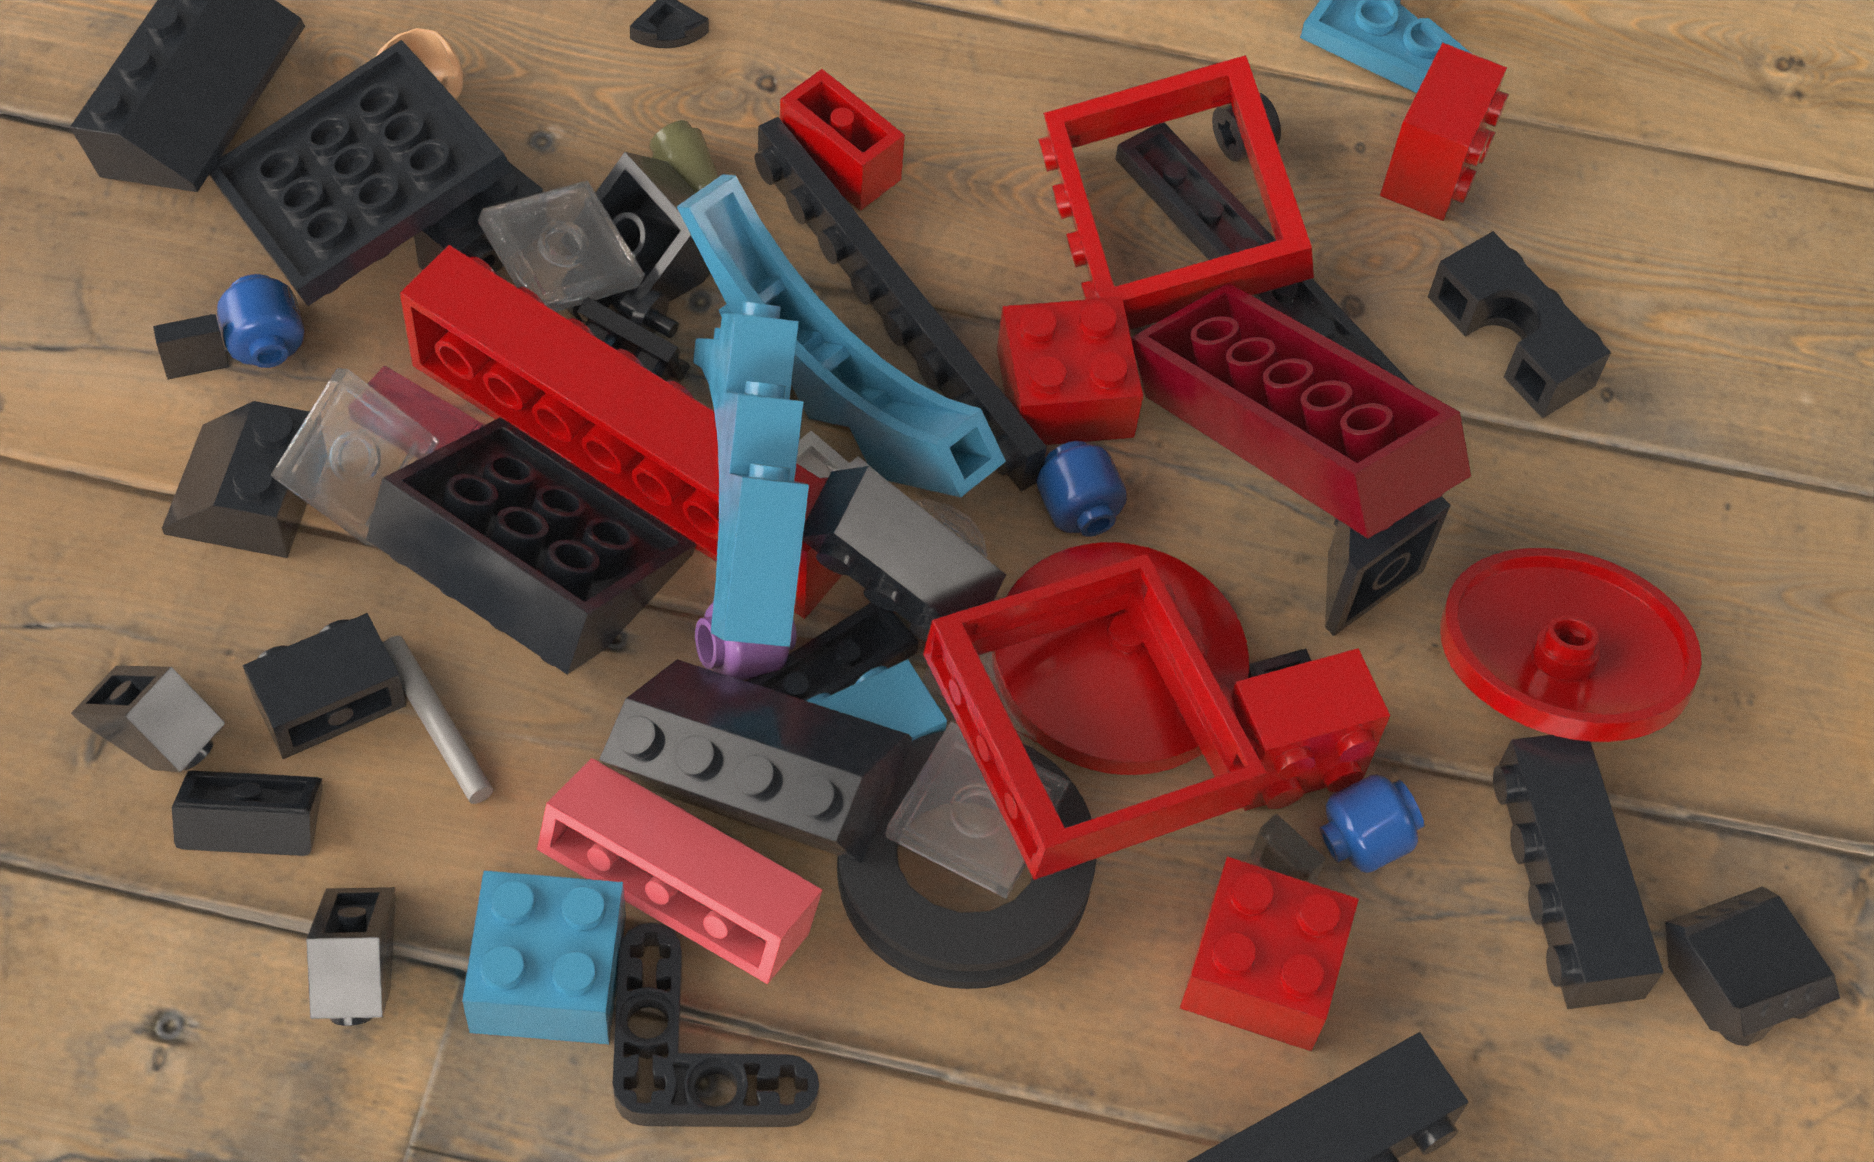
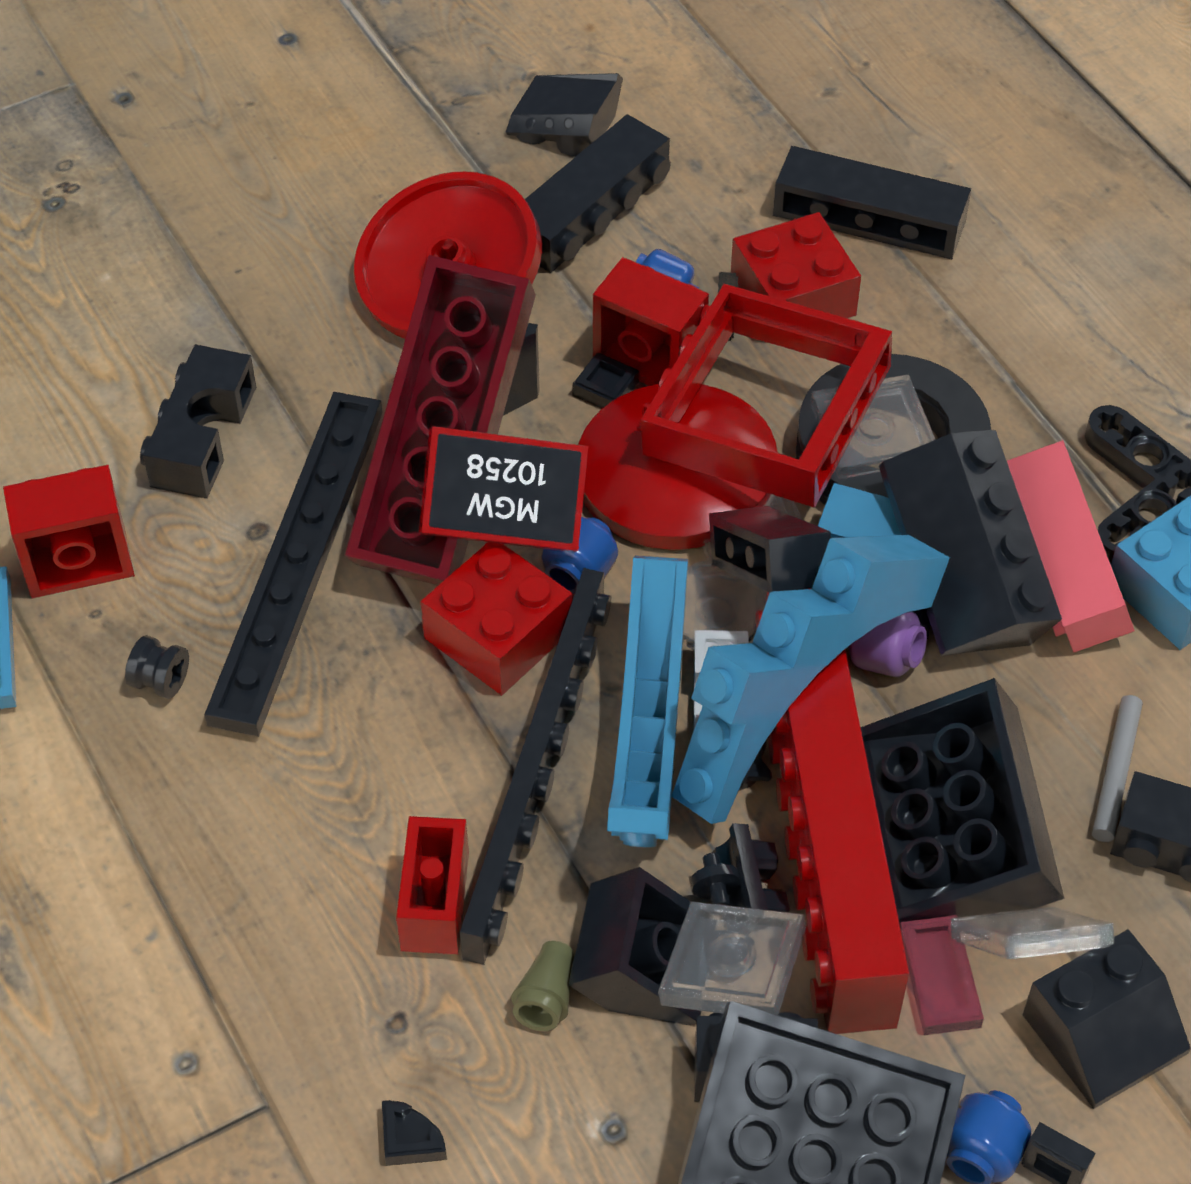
camera: 125 degrees left, 5 degrees down
(1161, 295) = (284, 753): red window -> none
(1167, 395) = (503, 489): none -> black tile

